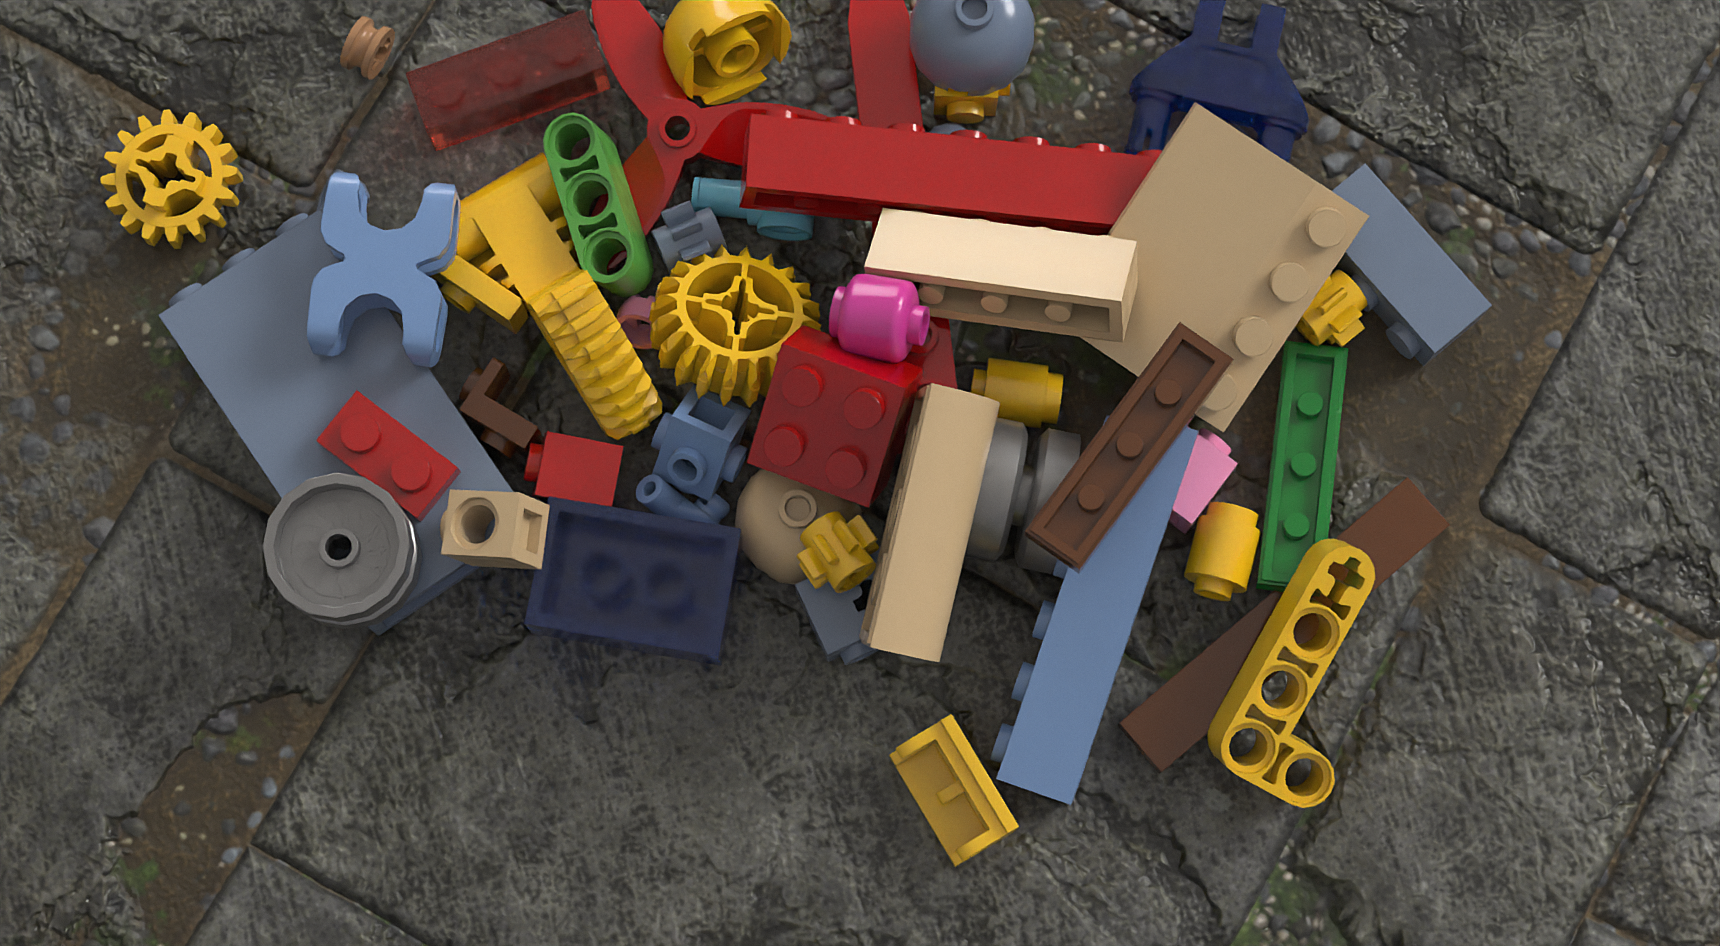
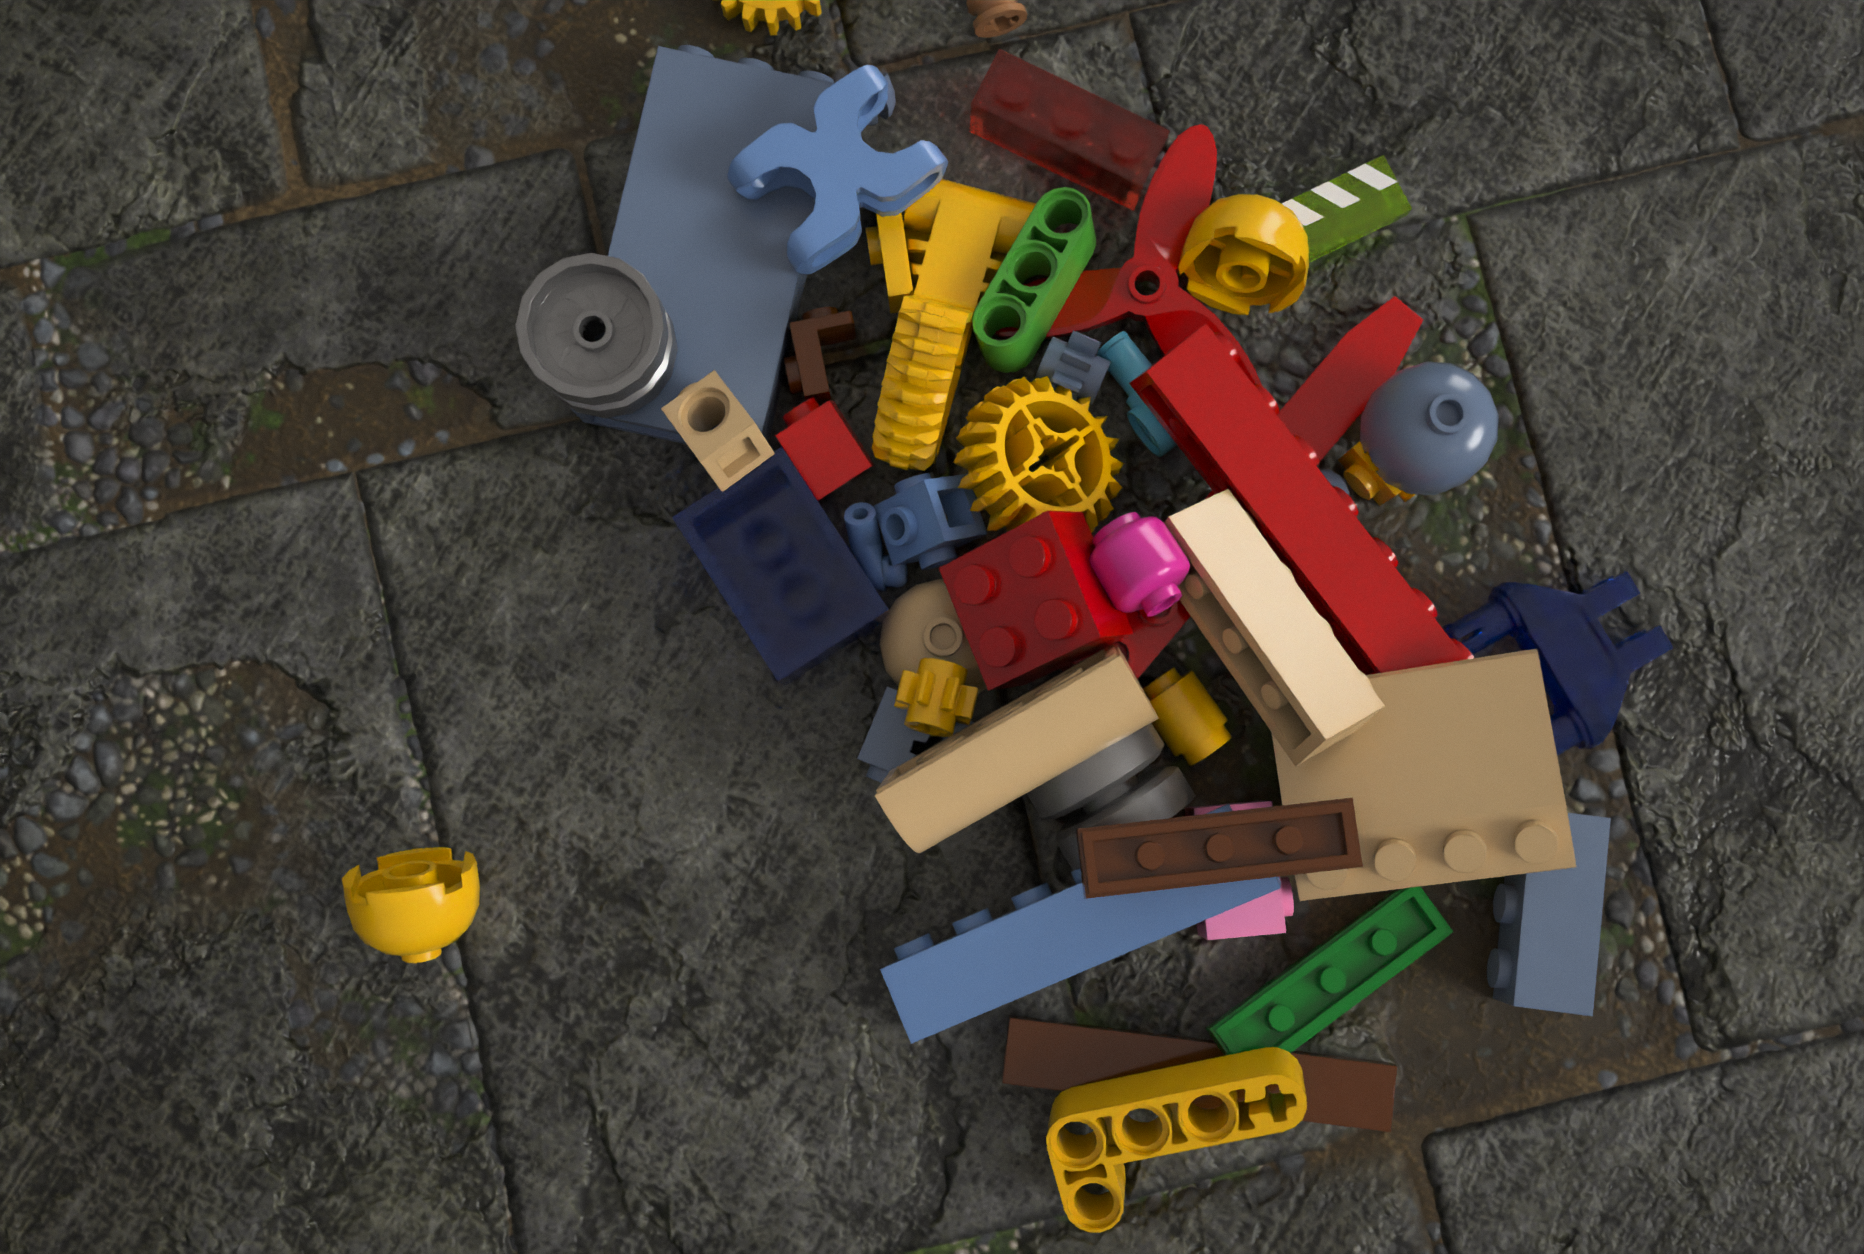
camera: 50 degrees right, 5 degrees up
(388, 455) = (705, 304): red plate -> none
(630, 316) = (972, 384): bright pink hinge -> none
(953, 790) = (846, 942): yellow hinge -> none
(1223, 551) = (1210, 978): yellow brick -> none
(1334, 312) = (1472, 901): yellow gear -> none

